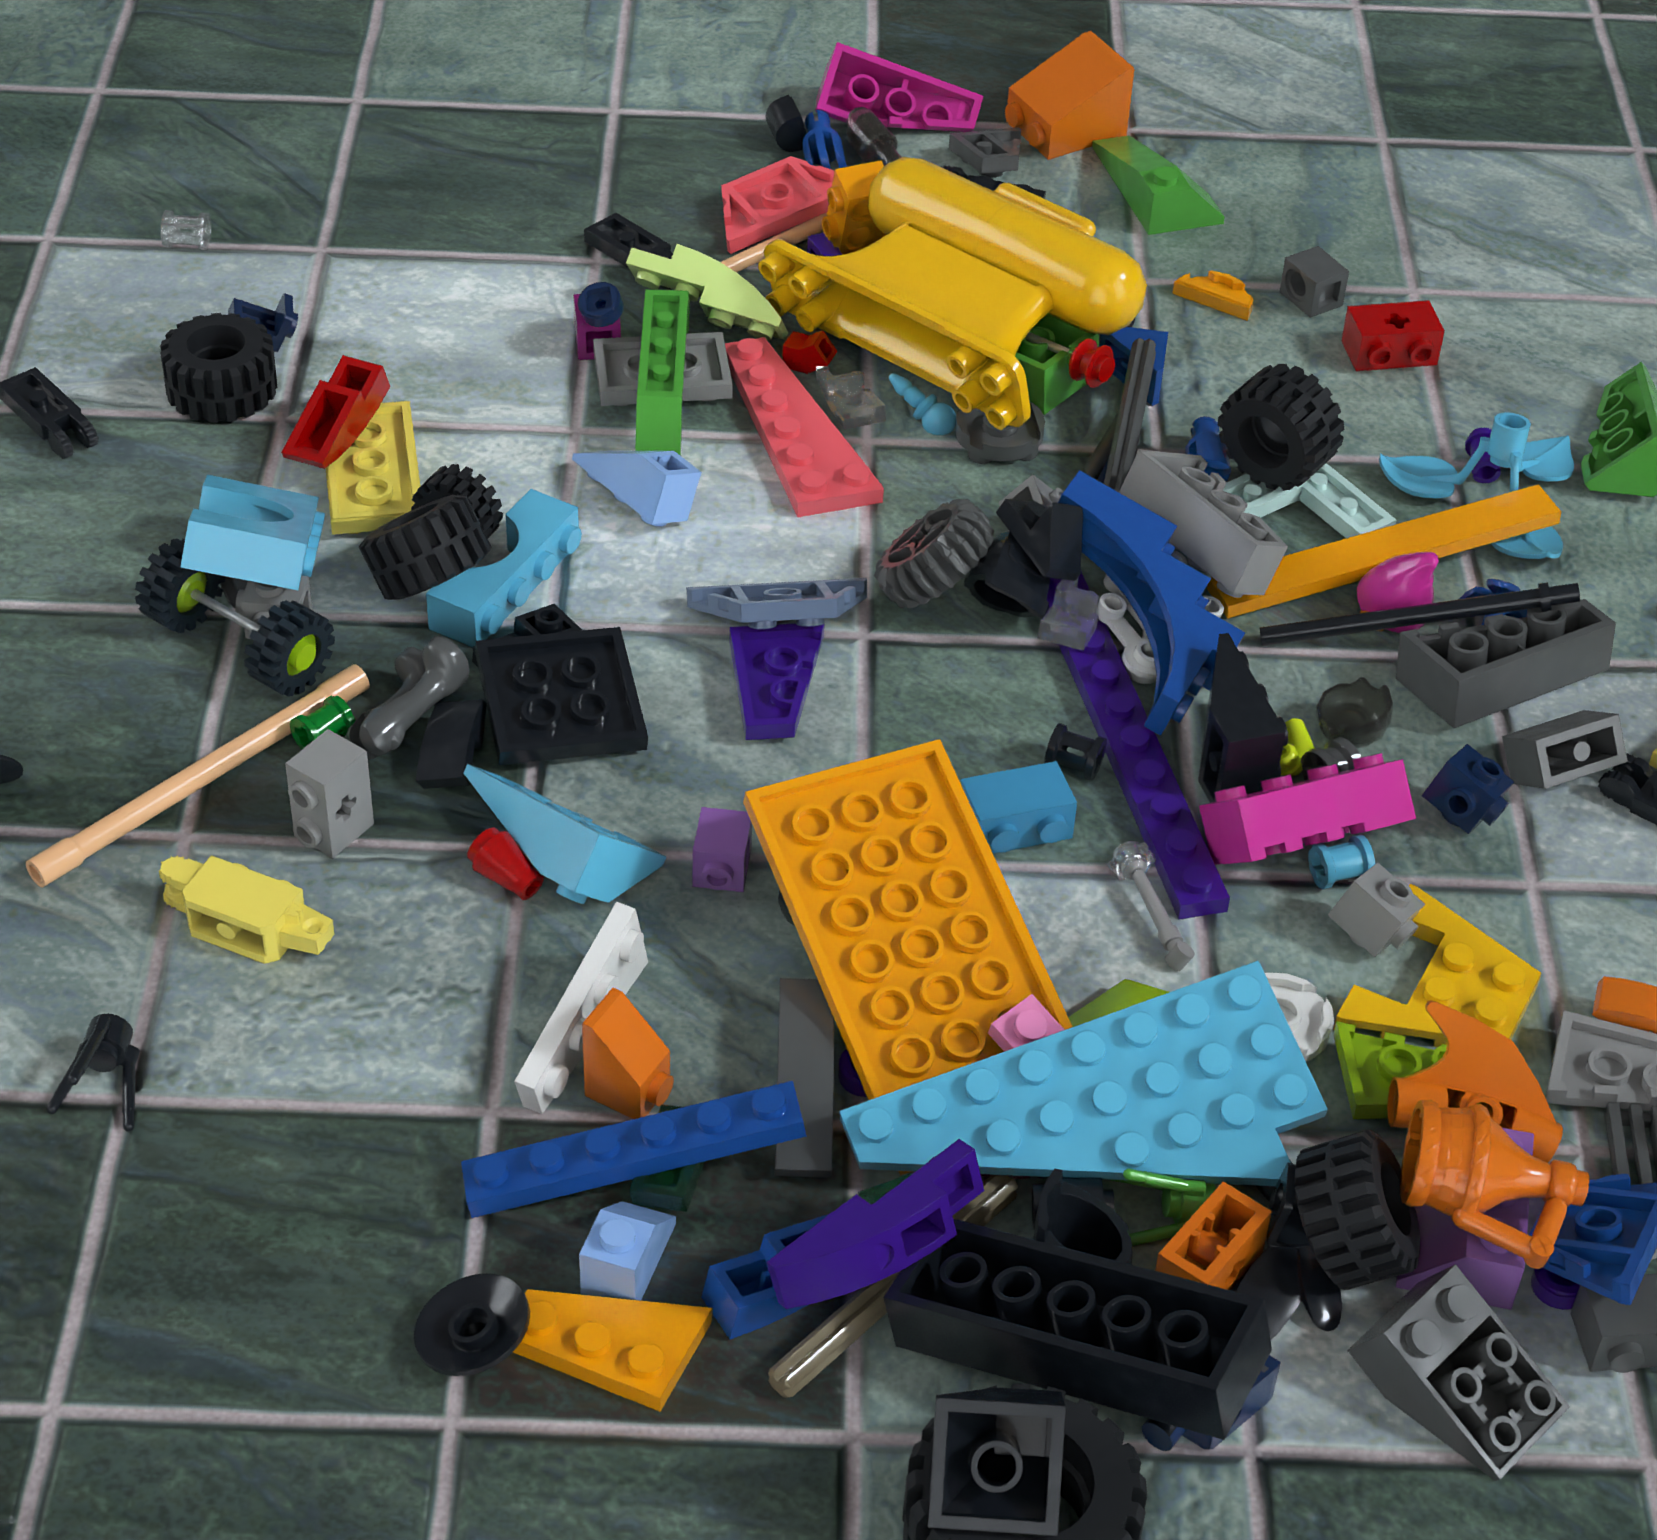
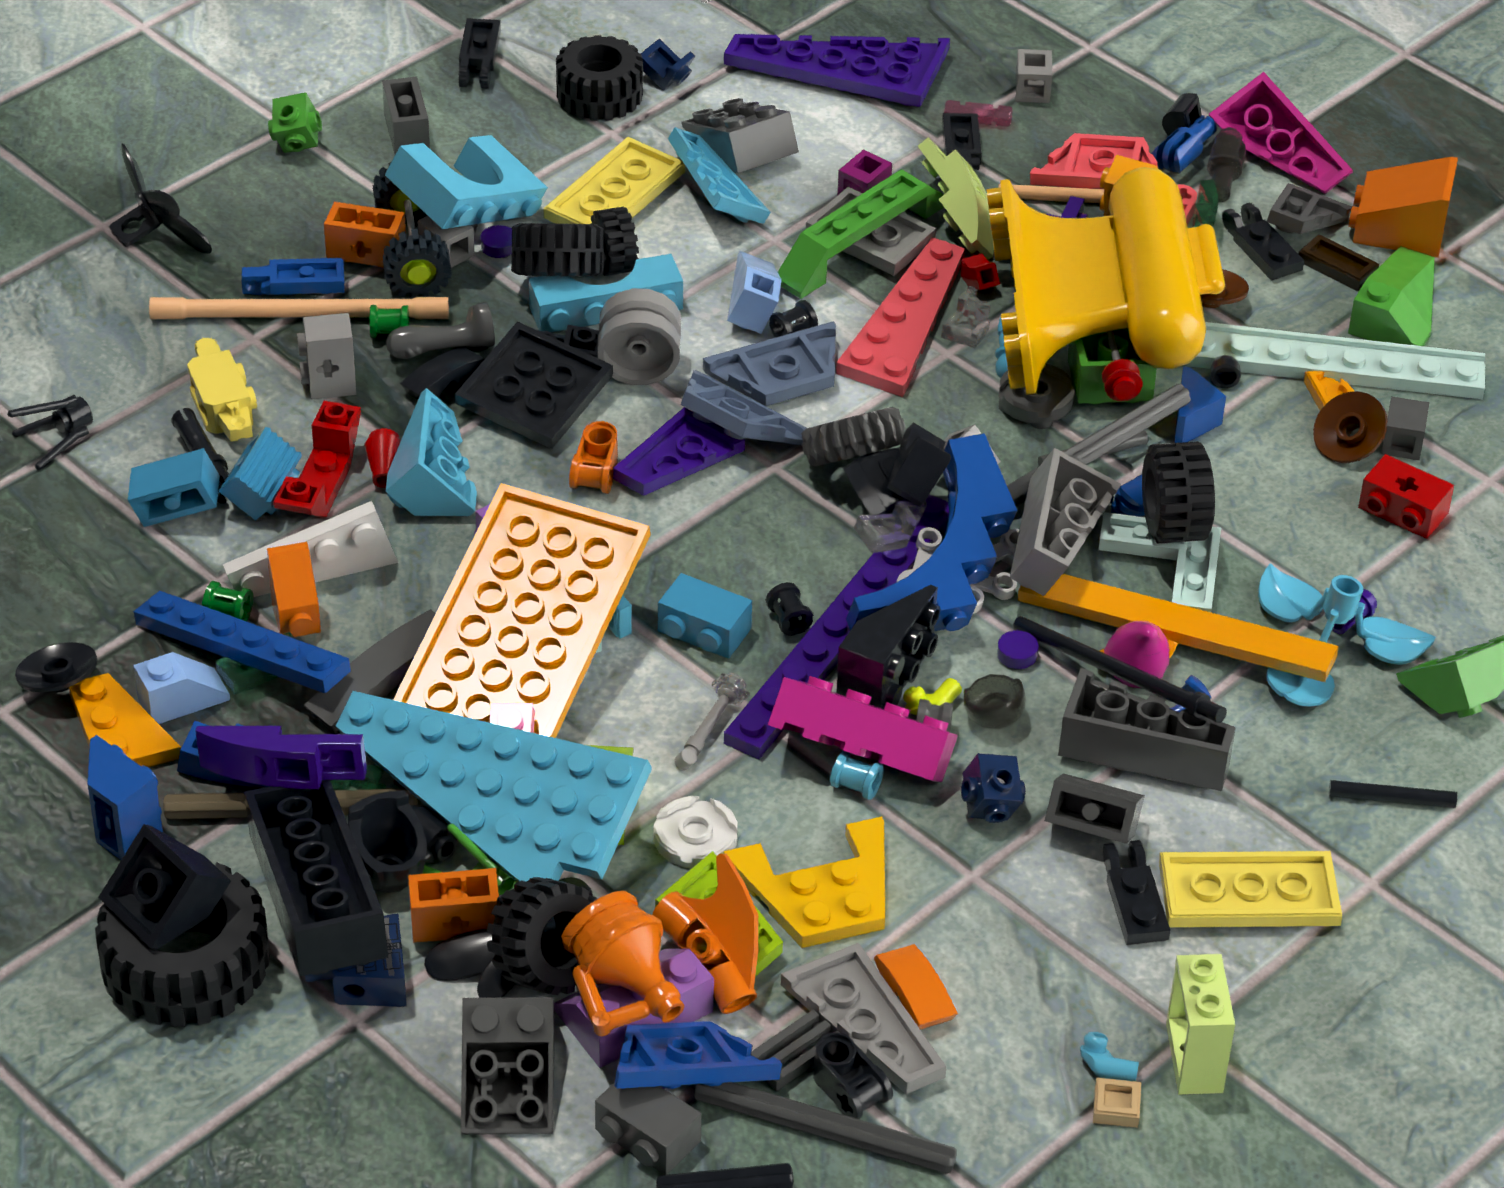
camera: 45 degrees right, 0 degrees up
(70, 511) = (405, 112): none -> dark grey brick
(158, 743) = (295, 277): none -> blue hinge
(190, 652) = (361, 232): none -> orange brick
(325, 583) = (497, 241): none -> dark purple tile
(333, 992) = (196, 439): none -> black pin
(337, 412) = (619, 143): red slope -> none
(342, 1039) = (173, 487): none -> dark azure brick
(414, 962) = (261, 473): none -> dark azure brick
(430, 231) = (845, 63): none -> dark purple wing
(430, 345) = (745, 133): none -> dark grey slope
(453, 914) = (328, 464): none -> red slope
(472, 402) = (716, 179): none -> medium azure wing
(566, 1107) = (228, 601): none -> green bush
(600, 304) = (860, 163): dark blue tile -> none
(614, 580) = (640, 336): none -> light grey wheel
(616, 154) = (1033, 76): none -> light grey brick
(628, 206) = (986, 112): none -> clear pink axle
(714, 499) = (801, 309): none -> black bush
(716, 728) = (595, 457): none -> orange piece
(752, 1410) = (120, 797): none -> blue slope
(754, 537) = (779, 366): none -> sand blue wing
(1068, 179) = (1337, 262): none -> dark brown tile
(1222, 240) = (1350, 359): none -> light aqua plate
(1279, 285) = (1344, 415): none -> reddish brown dish
(1294, 659) = (1017, 649): none -> dark purple tile
(1377, 911) = (825, 810): light grey brick -> none

